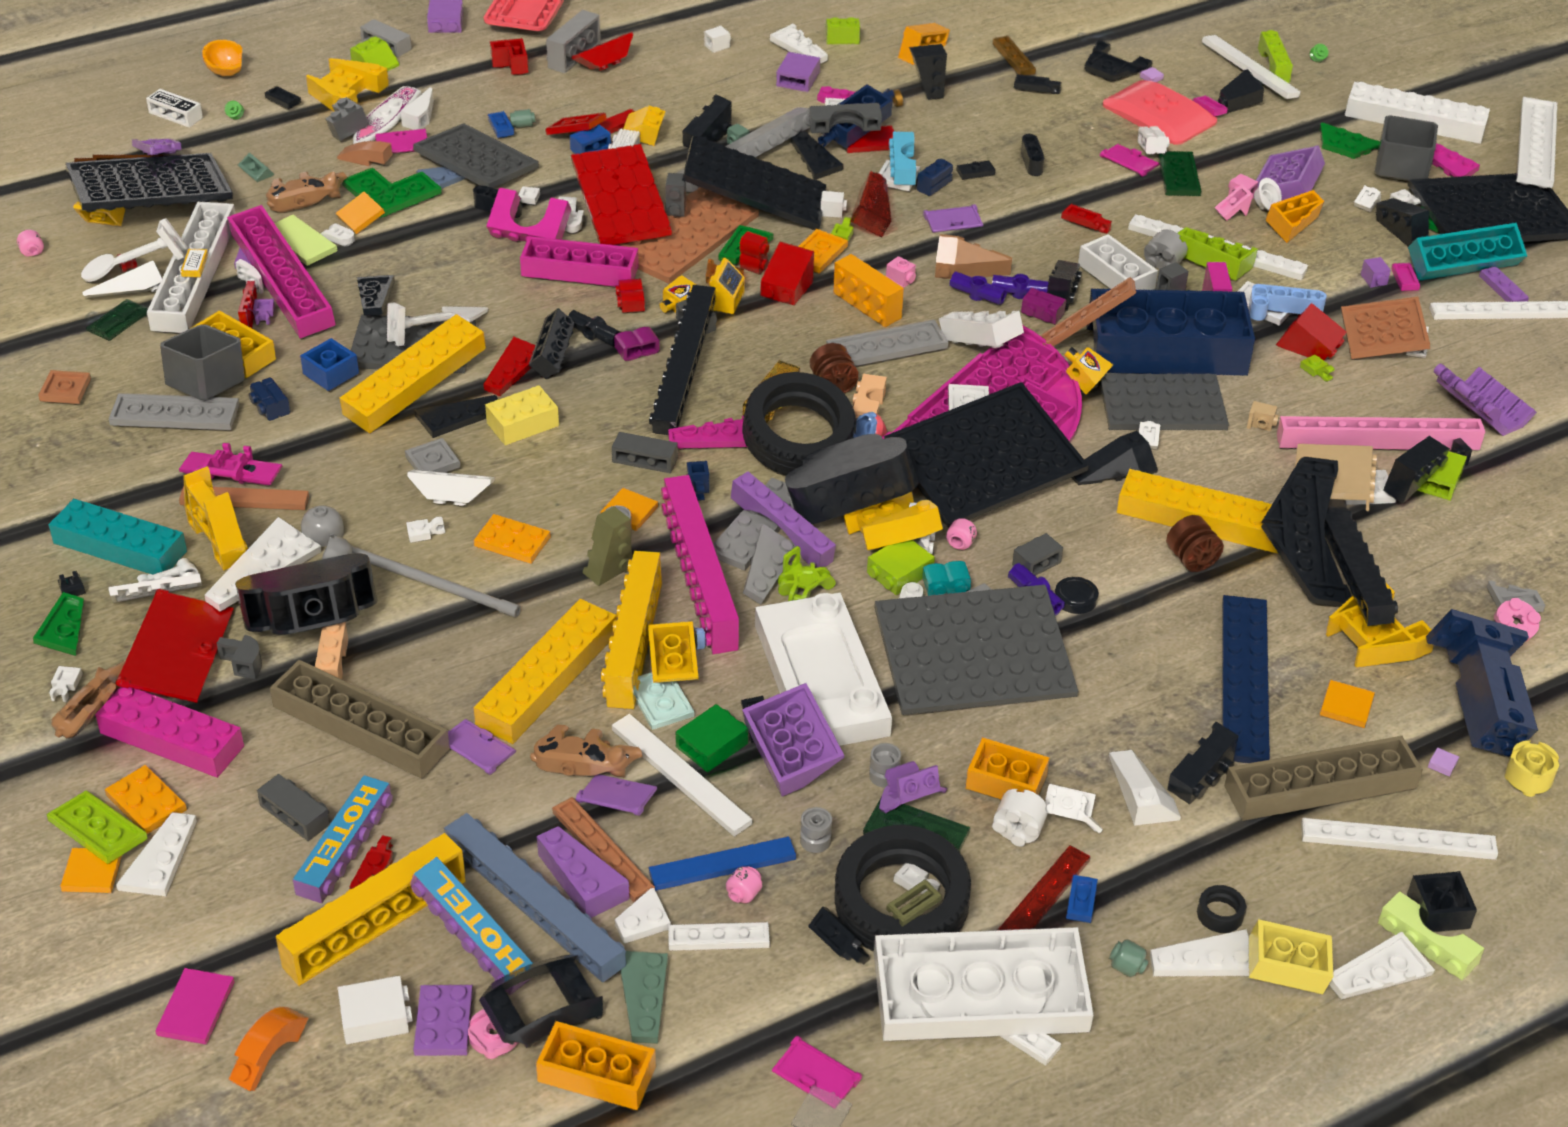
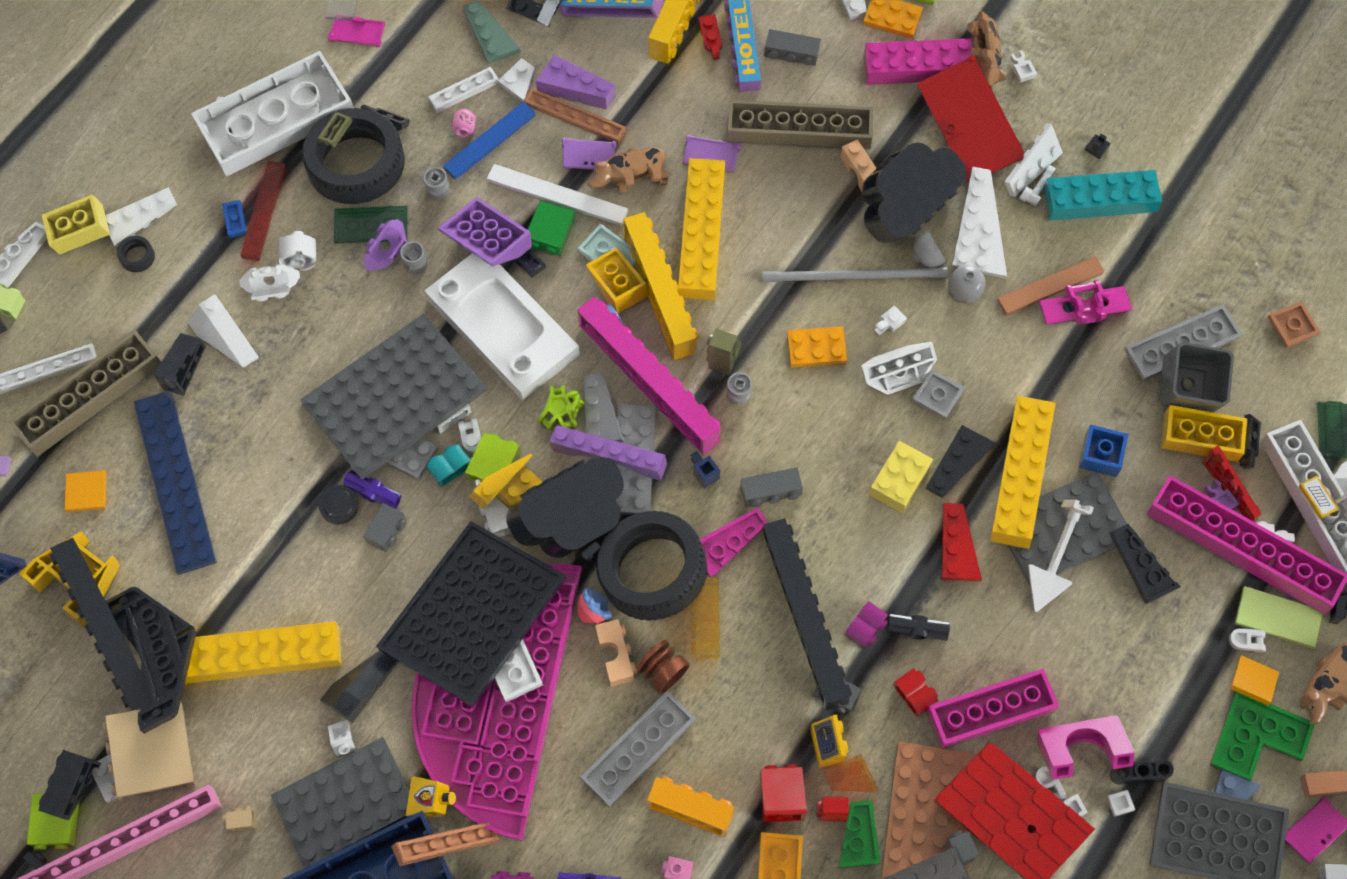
camera: 155 degrees right, 25 degrees up
(62, 625) = (1069, 109): green wing -> none
(214, 517) = (1045, 221): yellow wedge -> none
(243, 654) = (918, 134): dark grey brick -> none
(269, 399) = (1120, 392): dark blue brick -> none
(537, 898) = (594, 53): sand blue brick -> none
(552, 343) = (937, 578): black brick -> none
(639, 506) = (746, 422): light orange tile -> none
(675, 293) = (867, 715): yellow torso -> none
(961, 534) = (457, 519): bright pink head -> none
(981, 327) = (544, 786): white wedge -> none
(1005, 767) = (322, 289): light orange brick -> none
(1128, 958) = (187, 185): sand green head -> none
(1195, 543) = (251, 595): copper wheel -> none

